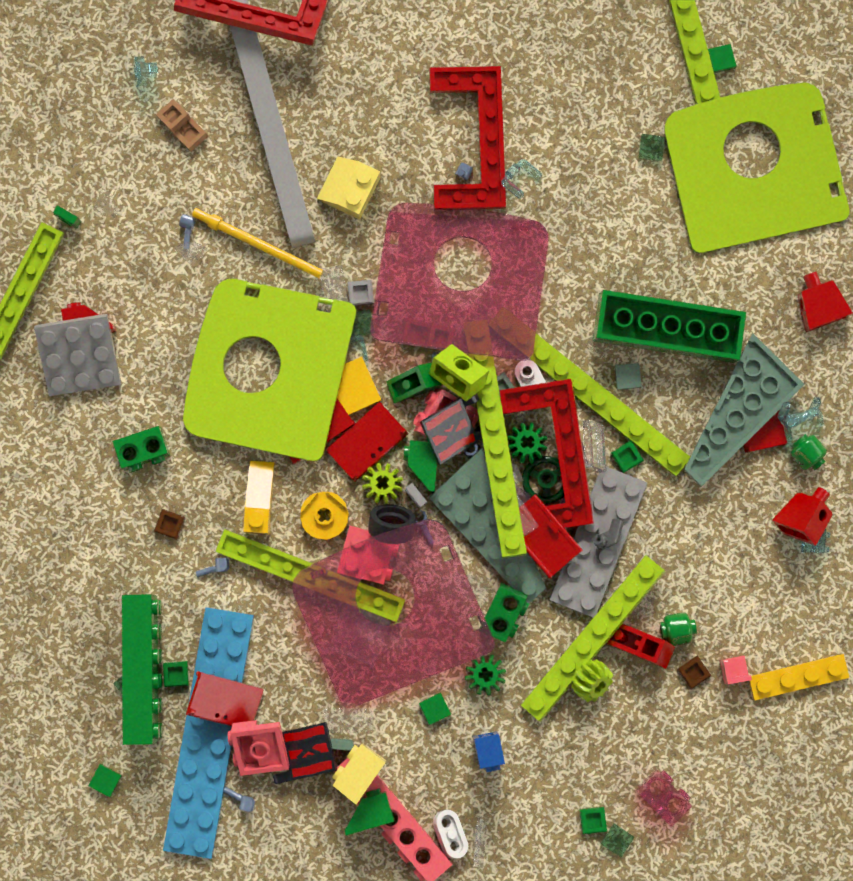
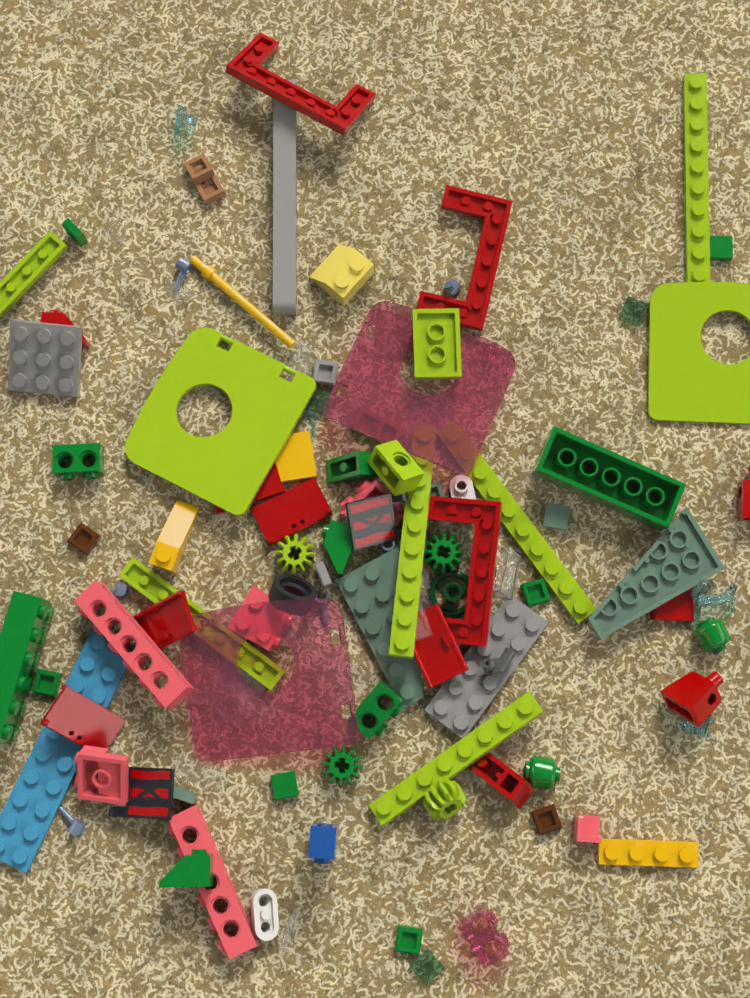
camera: 15 degrees right, 5 degrees down
(269, 586) = (167, 620): none -> red door
(306, 642) = (177, 685): none -> coral brick
(338, 514) = (234, 556): yellow plate -> none
(358, 773) = (190, 828): light yellow slope -> none
(464, 236) = (436, 344): none -> lime plate
(513, 170) = (499, 297): clear light blue piece -> none

